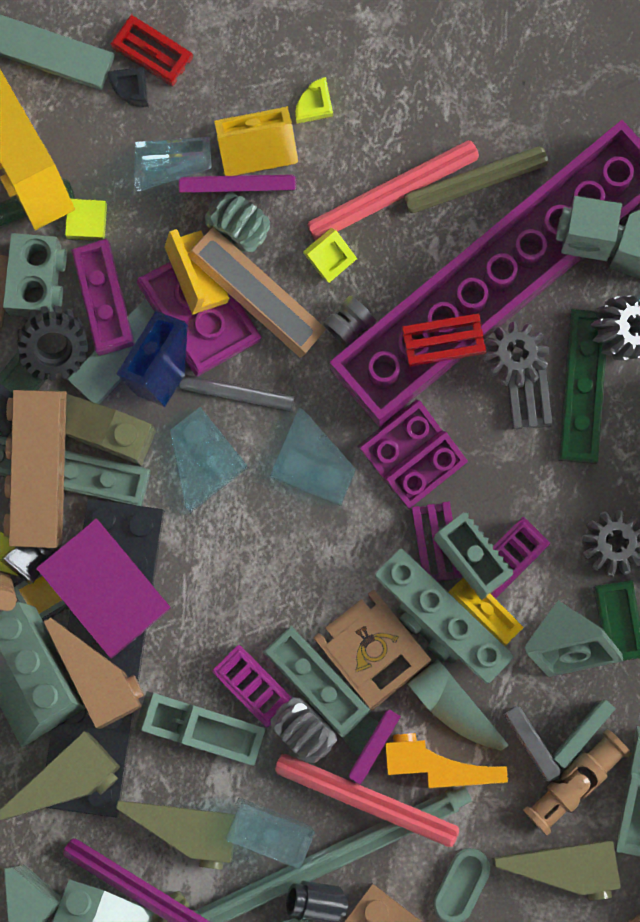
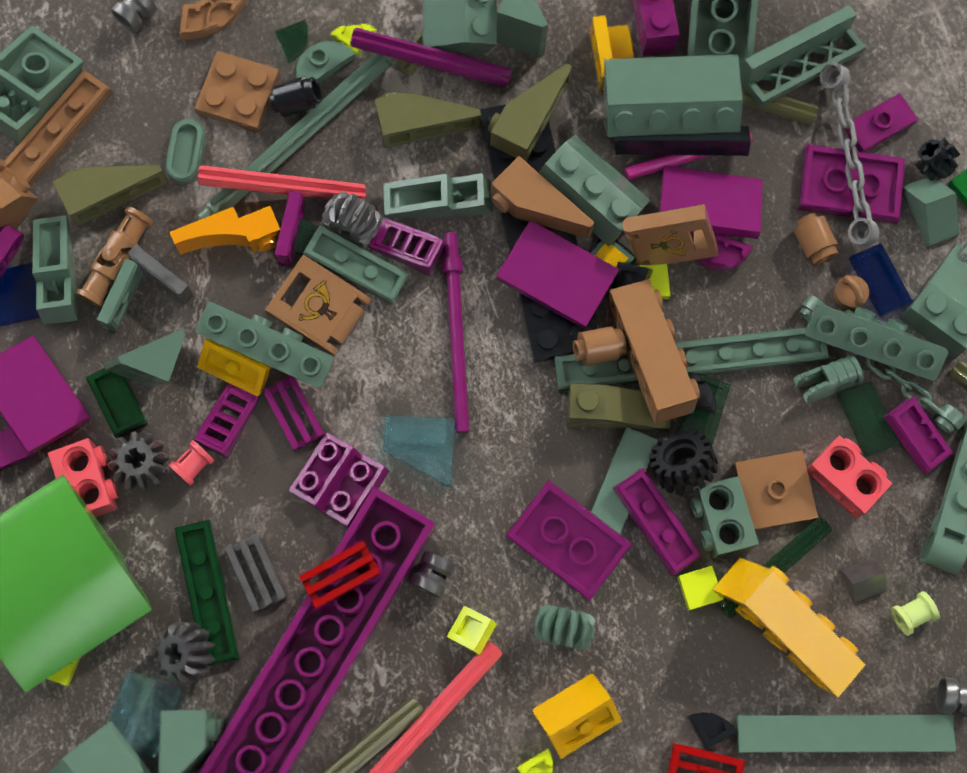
camera: 150 degrees right, 5 degrees down
(90, 494) = (599, 345): none -> medium nougat brick
(157, 359) = (587, 478): clear blue slope -> none
(170, 160) = (646, 664): clear light blue wing -> none
(198, 287) = (583, 569): yellow panel -> none
(203, 458) = (517, 415): clear light blue wing -> none
(212, 643) = (452, 268): none -> magenta bar
(237, 183) = (575, 660): magenta tile -> none
(237, 392) = (509, 481): flat silver bar -> none
(256, 292) = (524, 570): tile -> none
(270, 833) = (350, 133): clear light blue panel -> none
(454, 707) = (239, 286): sand green piece -> none
(473, 555) = (254, 400): sand green brick -> none
(529, 351) = (264, 602): flat silver gear -> none
(560, 522) = (191, 462): none -> coral bush
(589, 228) = (236, 716): sand green brick -> none

